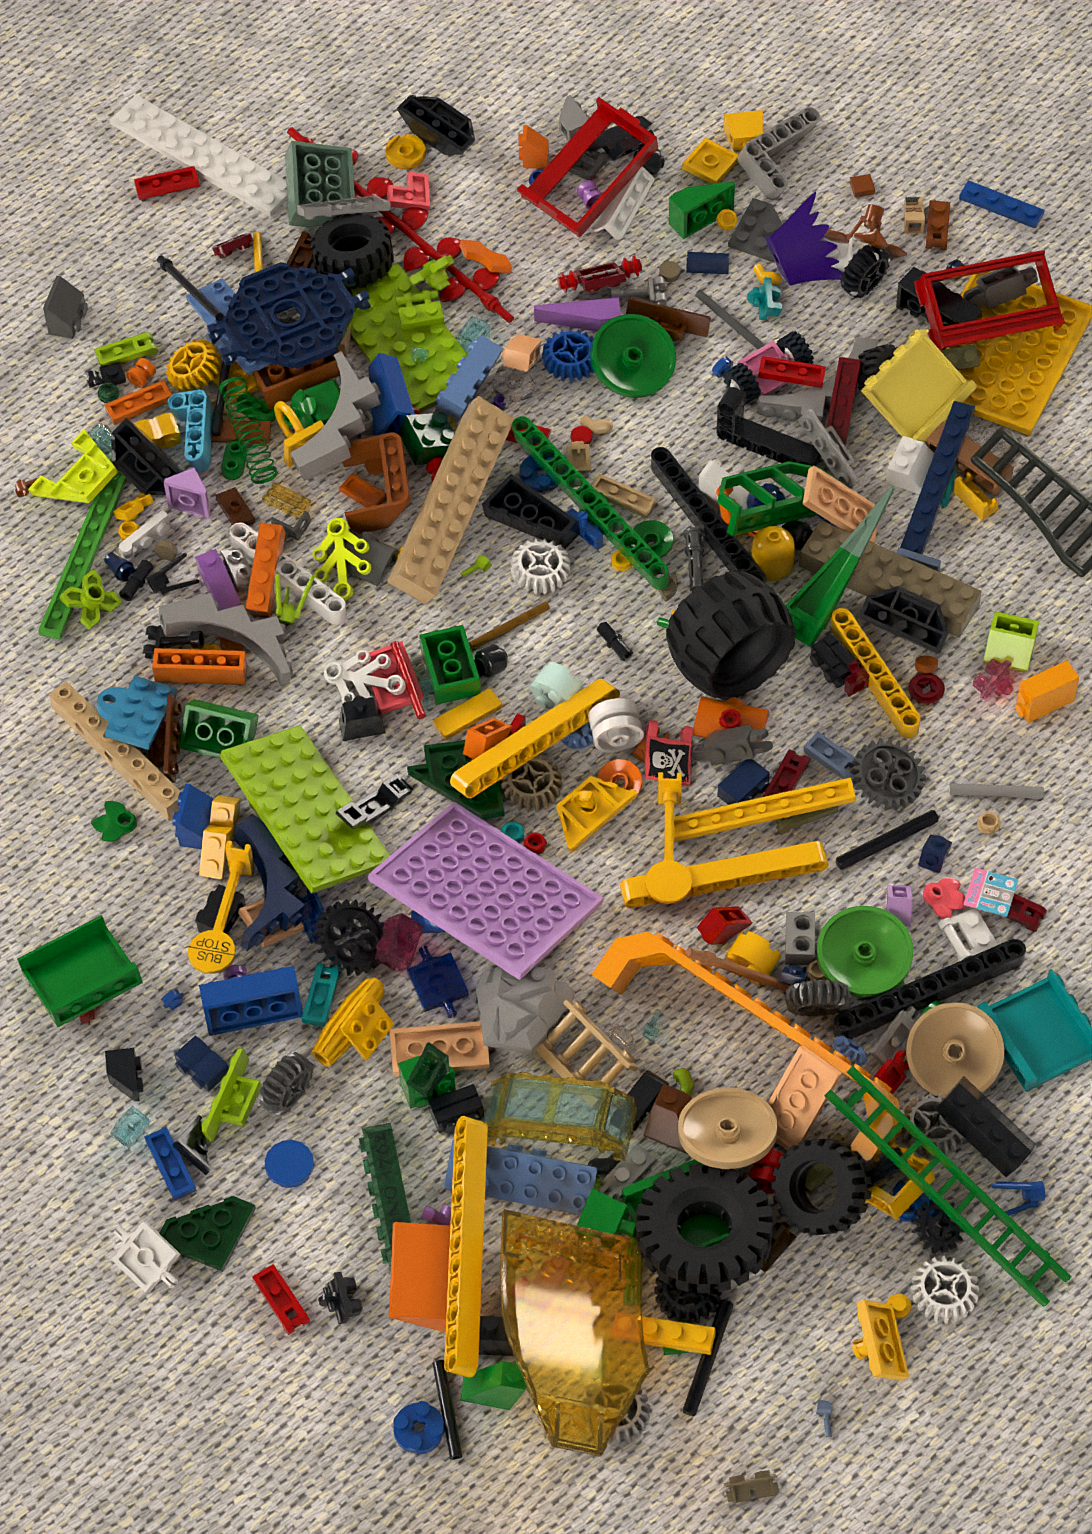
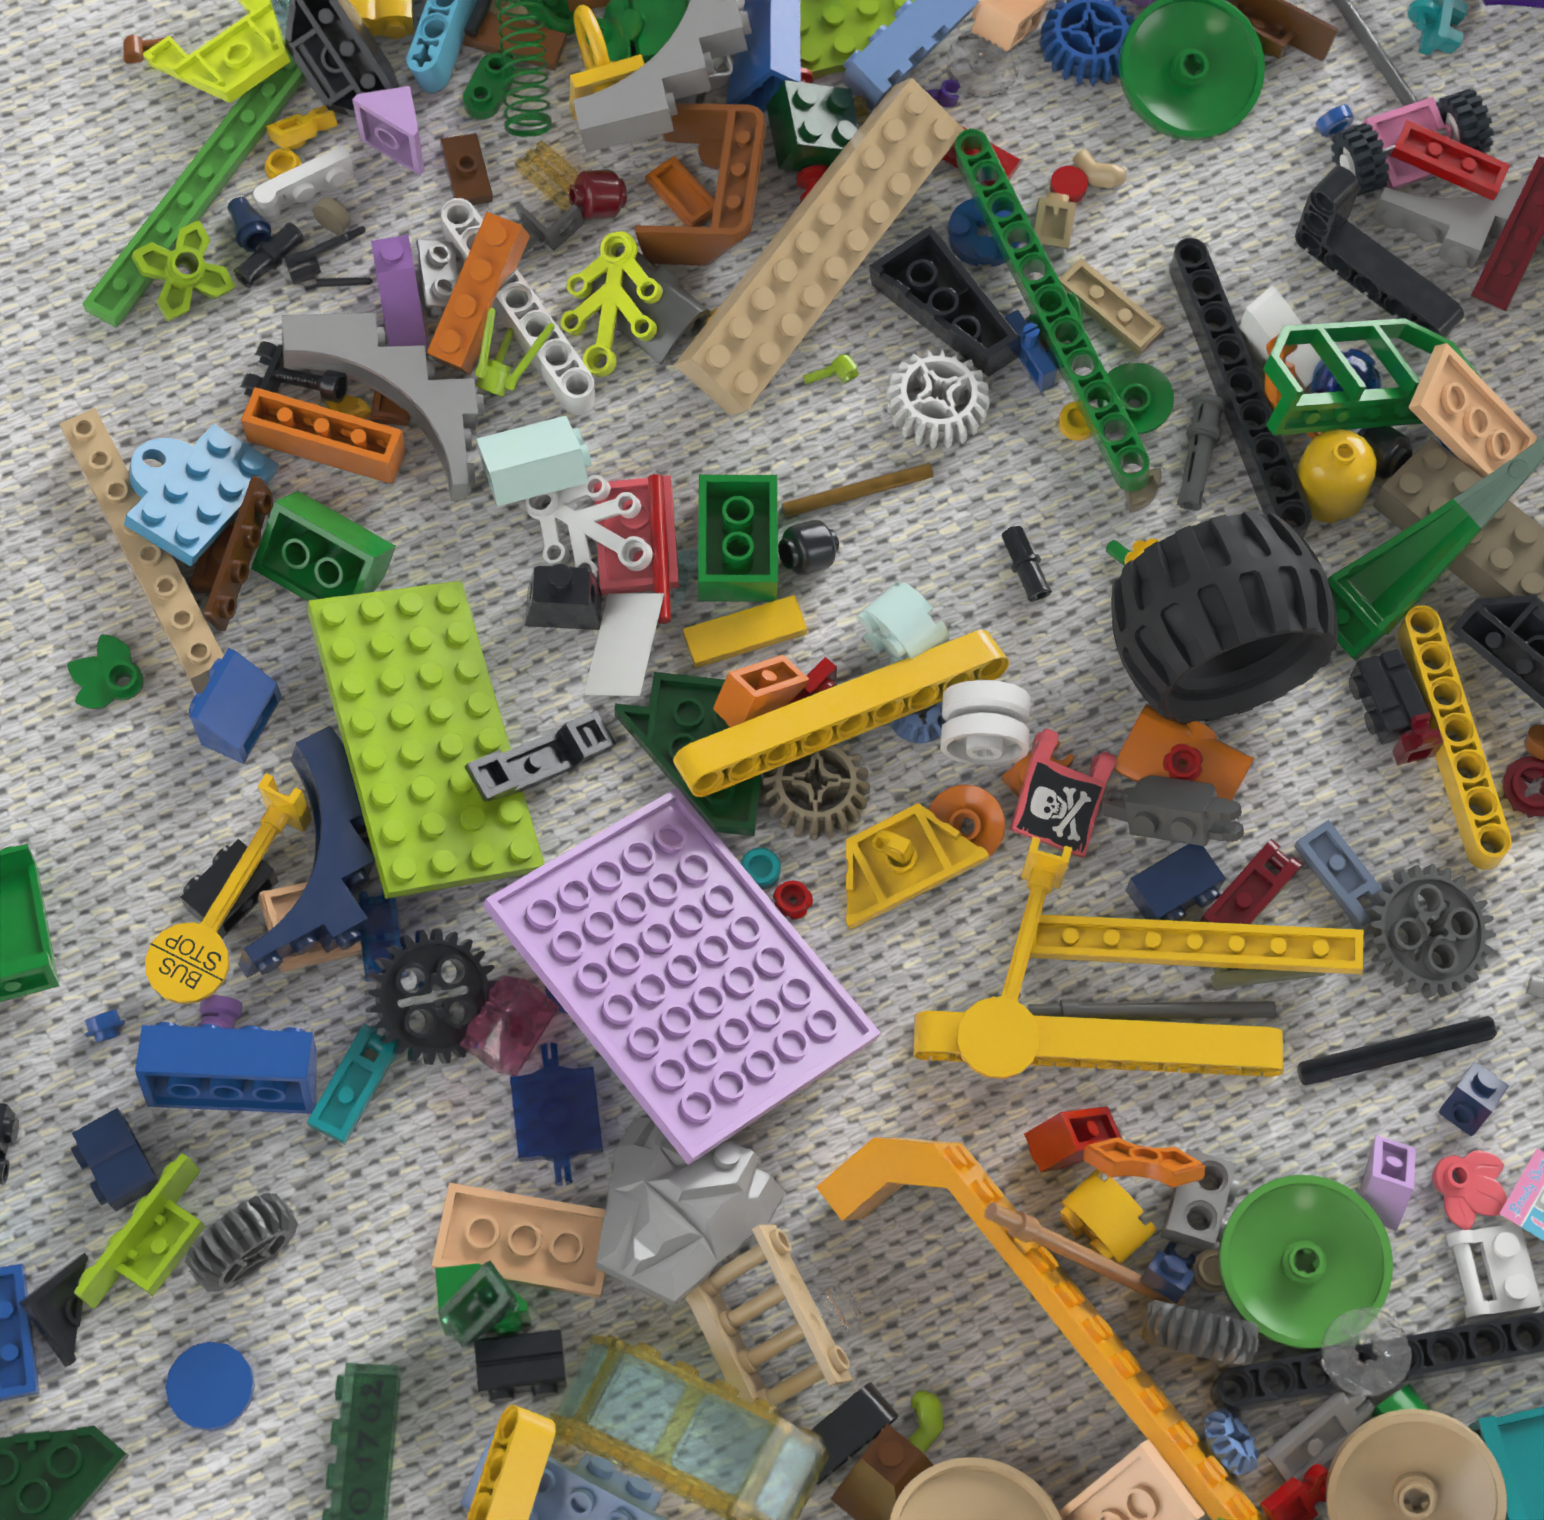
camera: 10 degrees right, 10 degrees up
(223, 820) = (284, 716): yellow arch -> none
(316, 502) = (598, 194): none -> dark red head
(323, 650) = (534, 460): none -> light aqua brick
(356, 1022) = (392, 1160): yellow plate -> none
(402, 735) = (624, 644): none -> white sticker
(650, 1032) = (893, 1303): clear light blue hand -> none
(751, 923) = (1123, 1158): none -> orange tile
(791, 841) = (1159, 1010): none -> dark grey bar
(830, 448) = (1480, 313): light grey bracket -> none
(911, 997) = (1342, 1361): none -> clear plate

